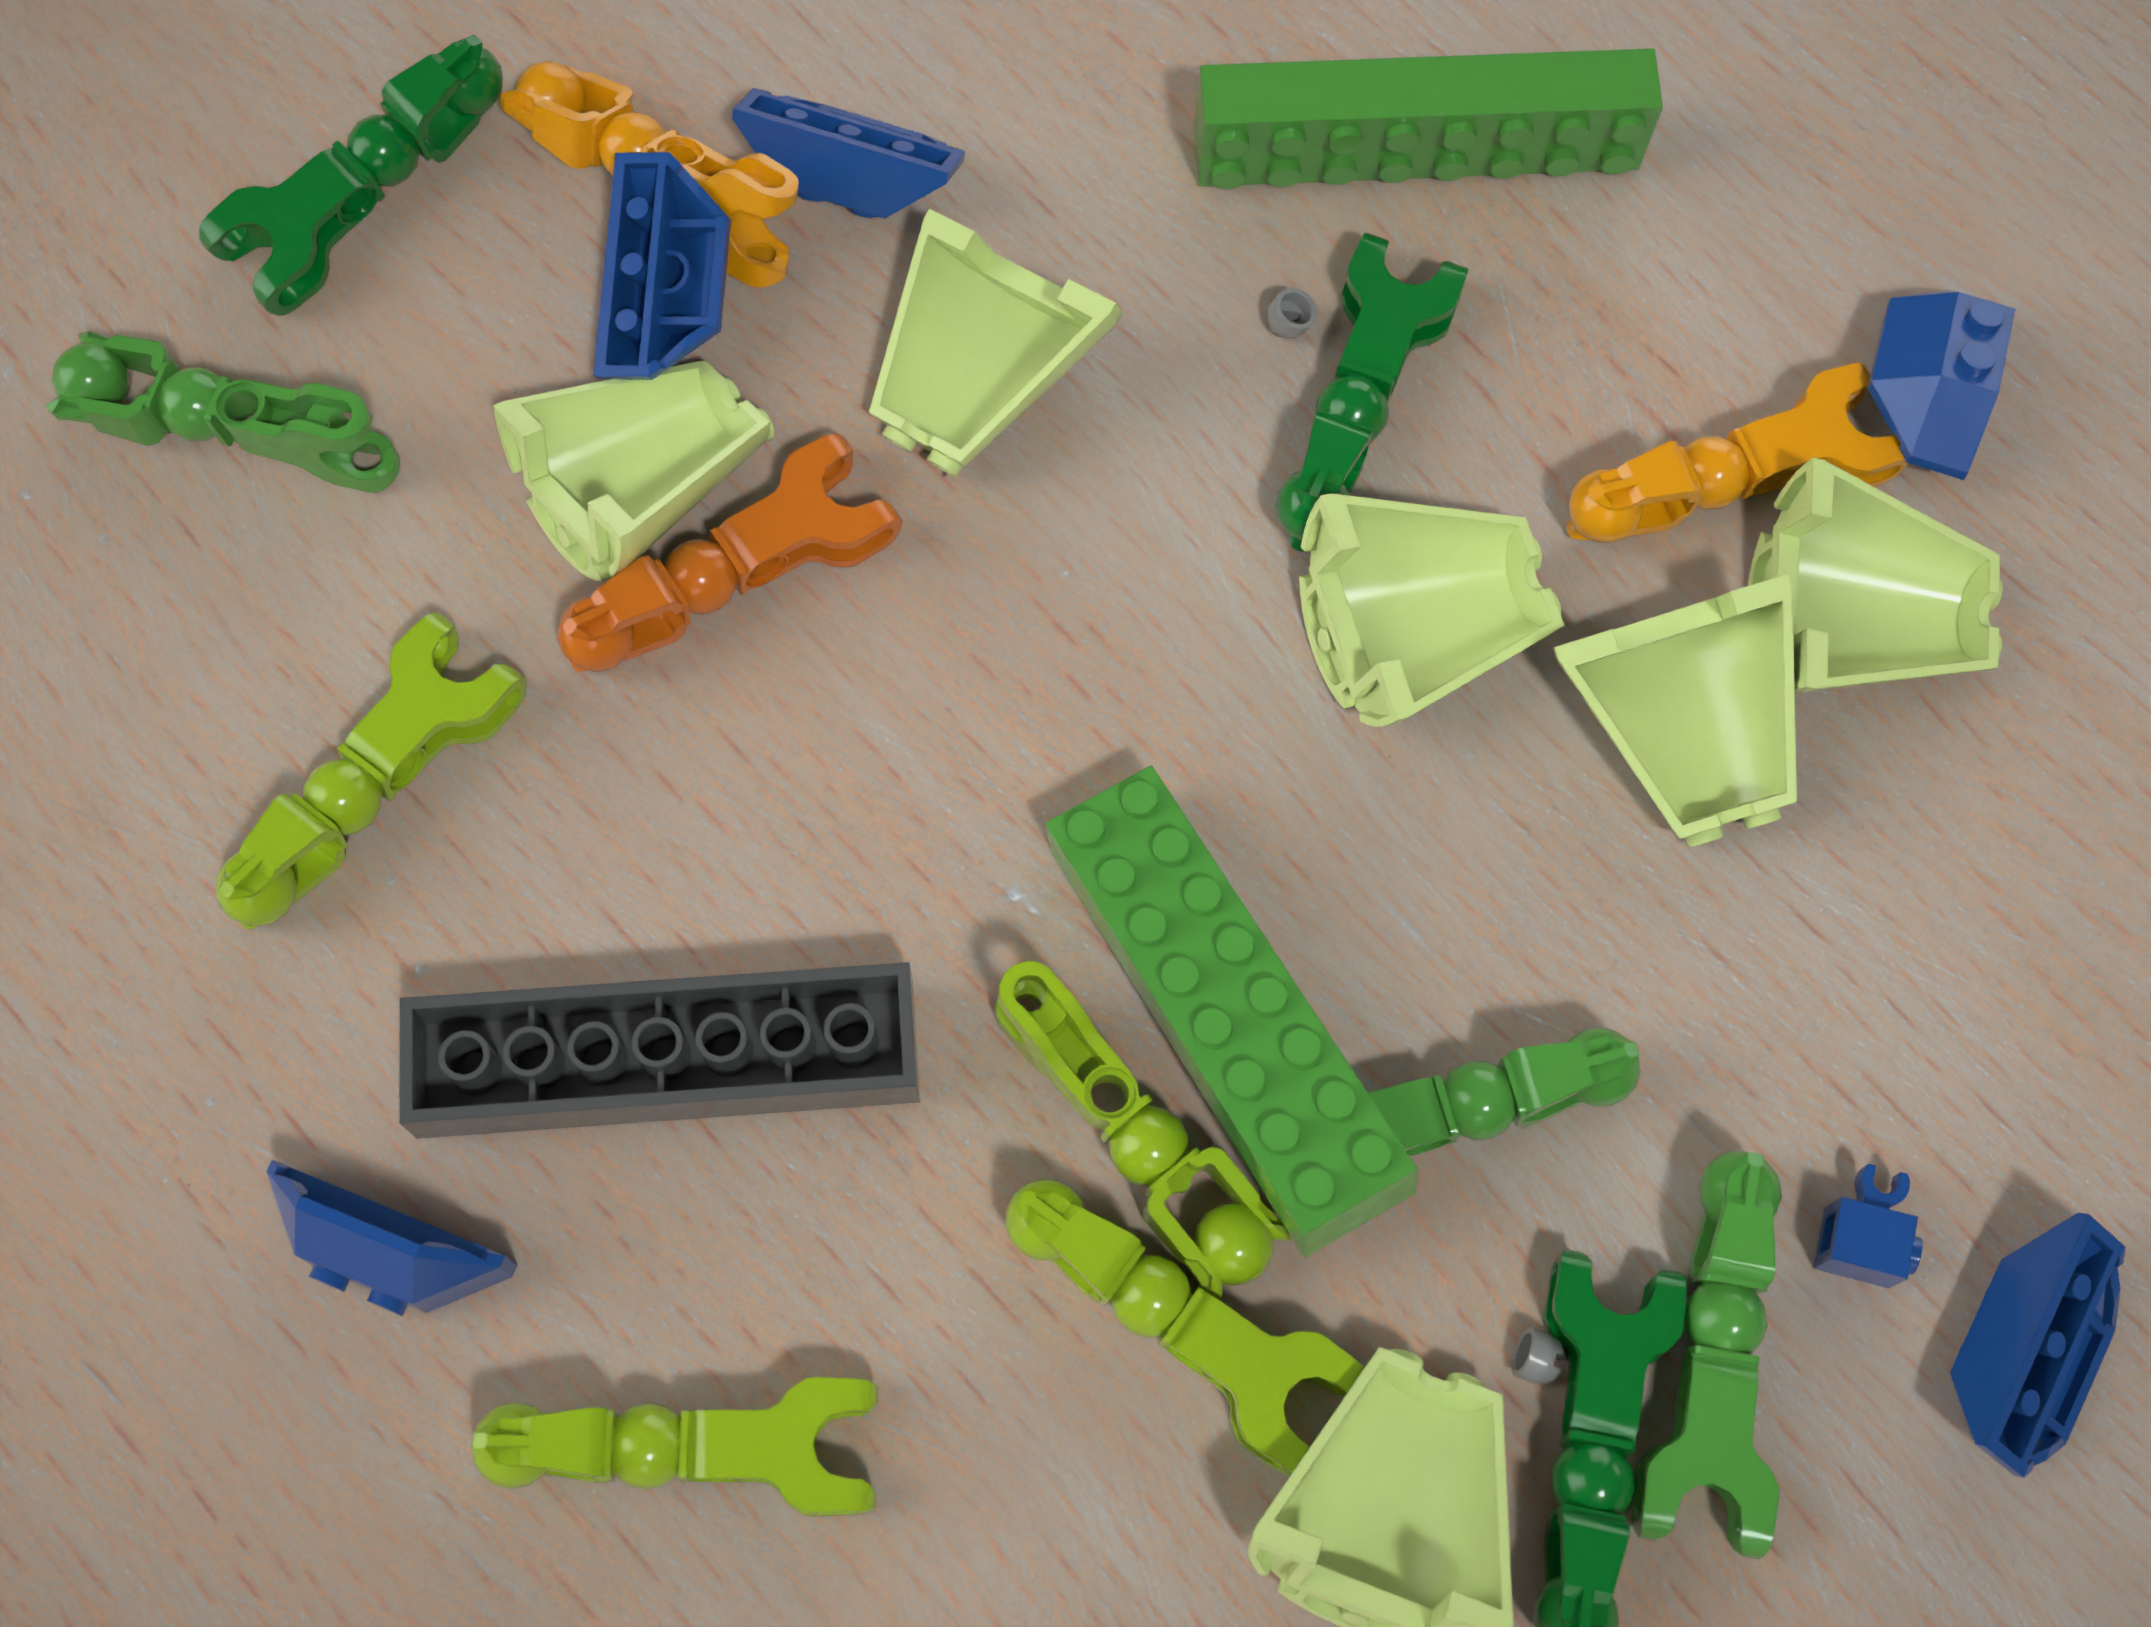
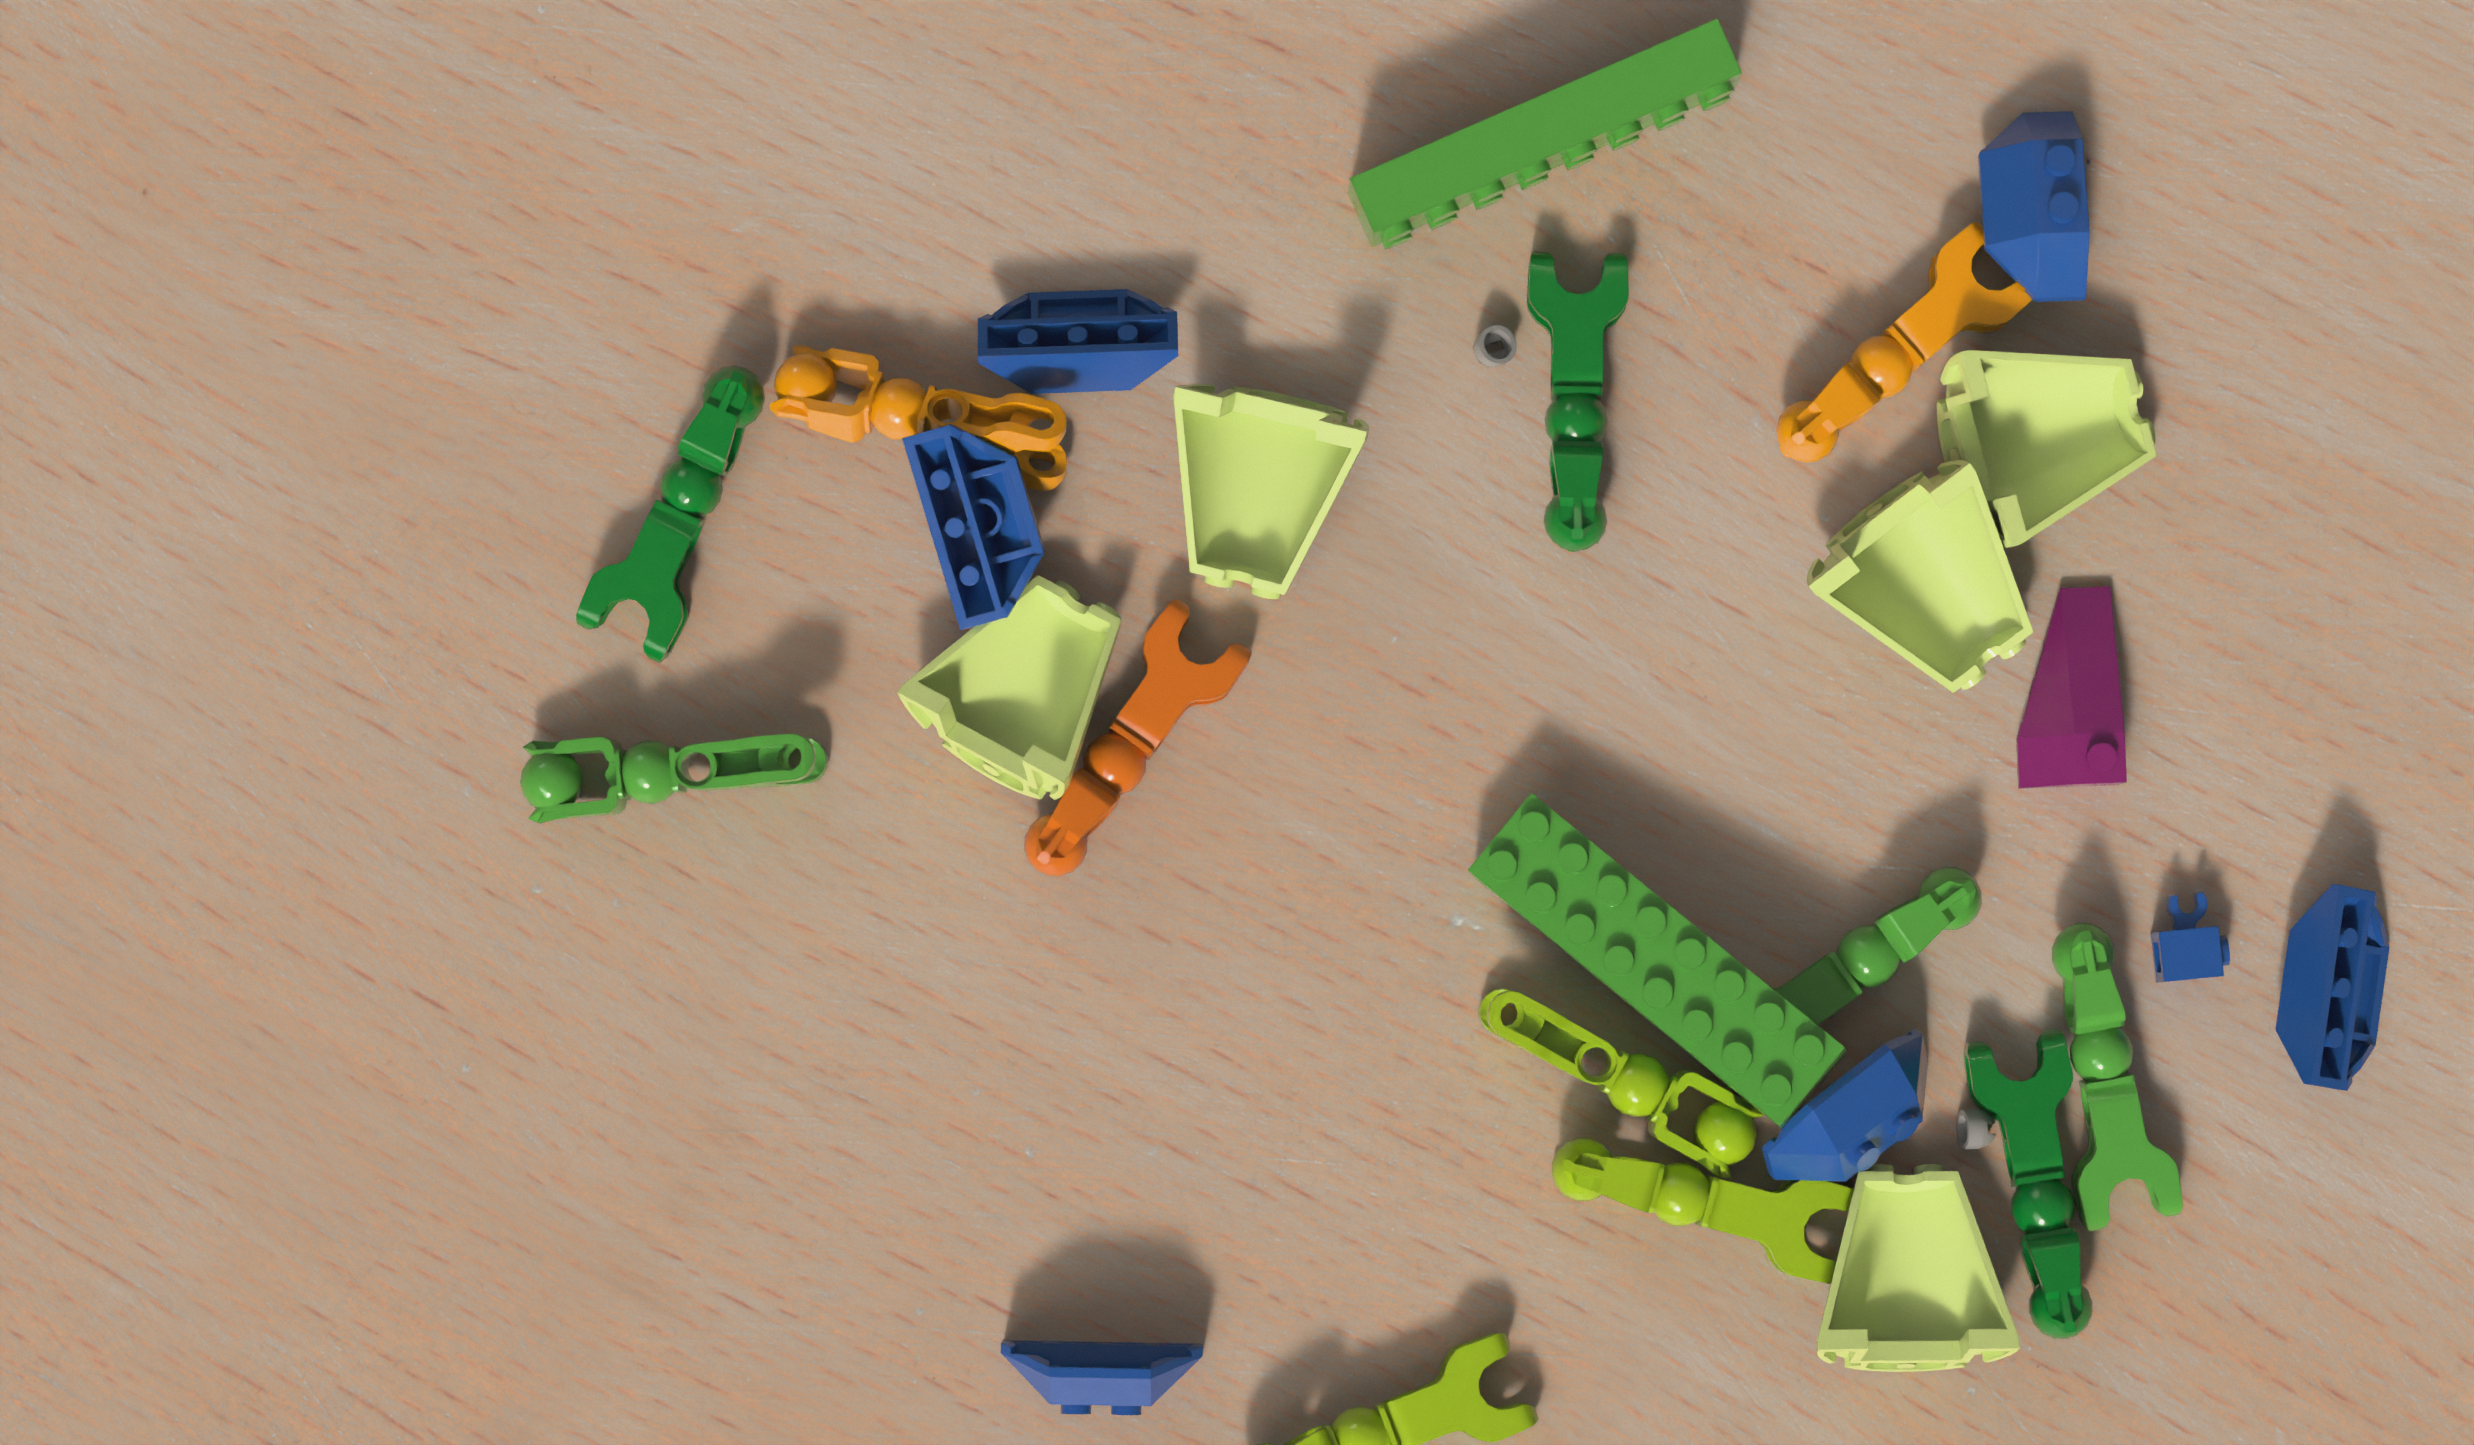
camera: 15 degrees left, 15 degrees up
(419, 716) = (920, 1042): lime piece -> none
(657, 1050) = (1248, 1152): dark grey brick -> none
(1395, 1272) = (1854, 1116): none -> blue wedge
(1417, 600) = (1692, 576): yellowish green cone -> none
(1817, 913) = (2075, 703): none -> magenta wedge

